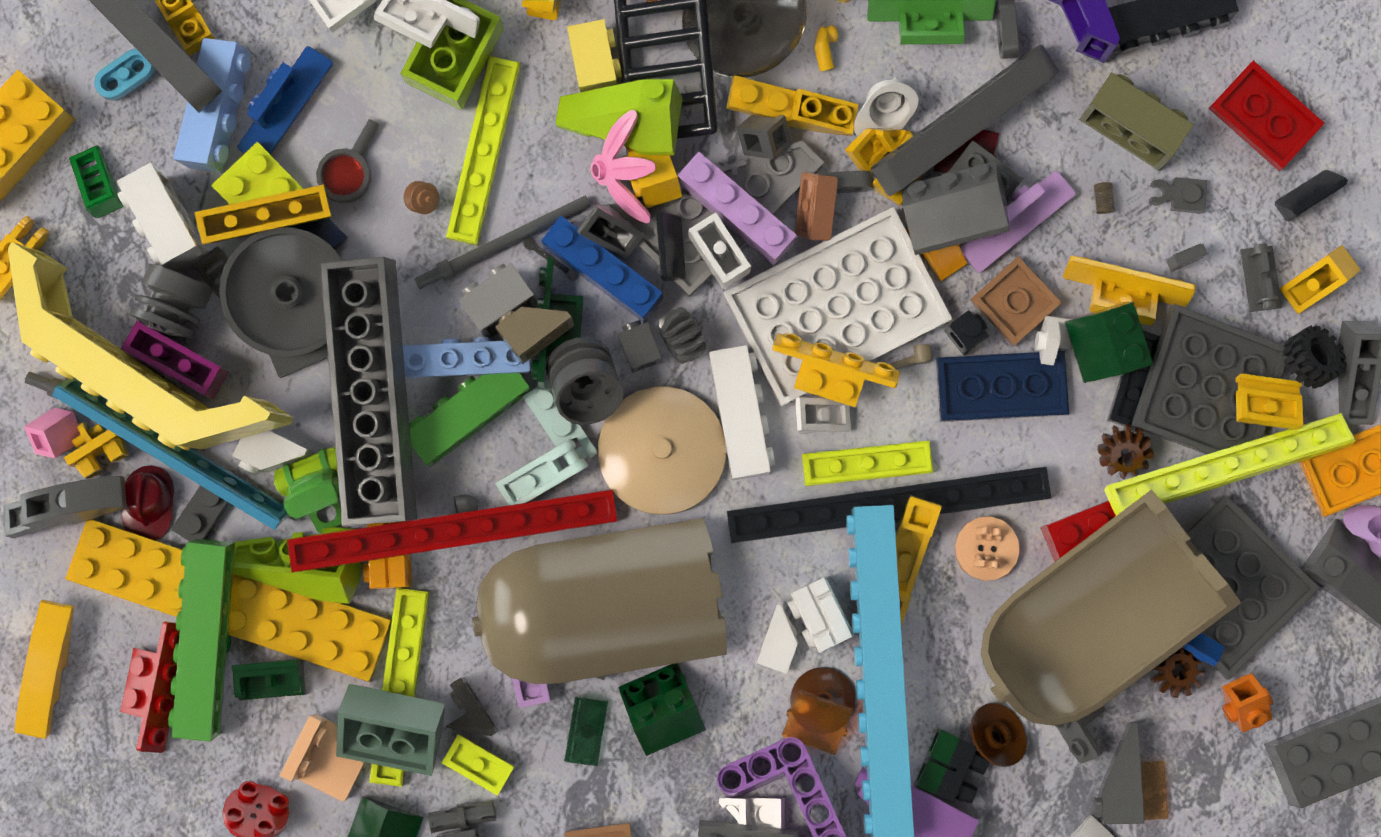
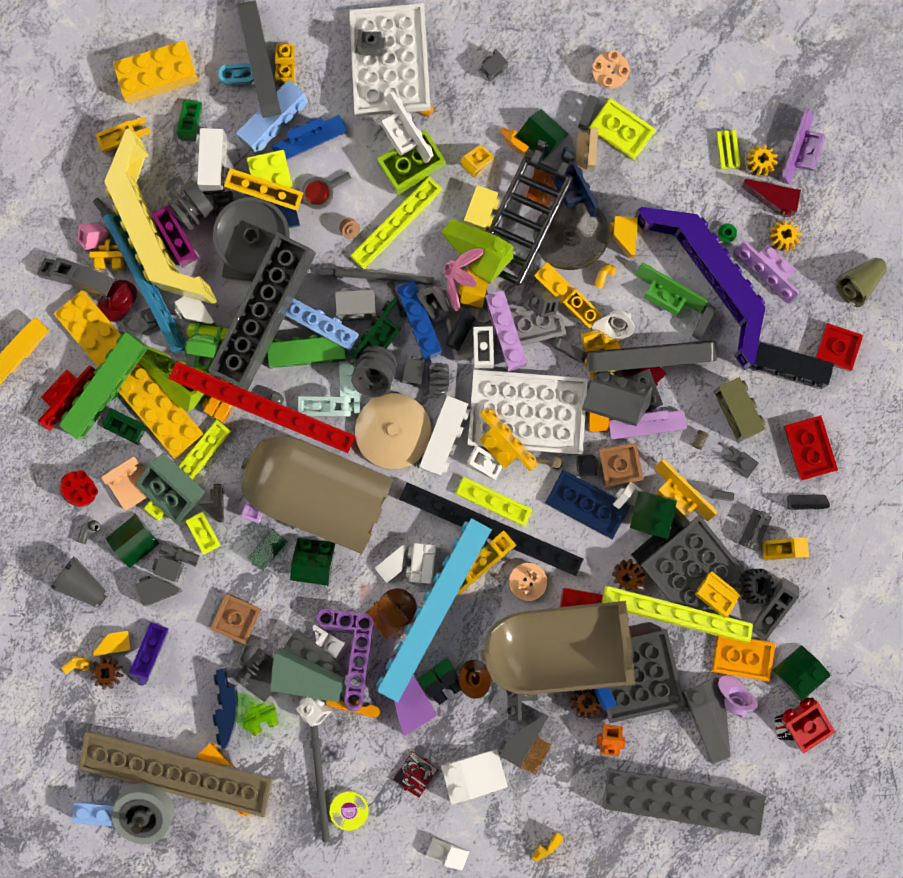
camera: 25 degrees right, 0 degrees up
(532, 329) = (363, 330): dark tan slope -> none
(816, 206) = (547, 354): nougat slope -> none

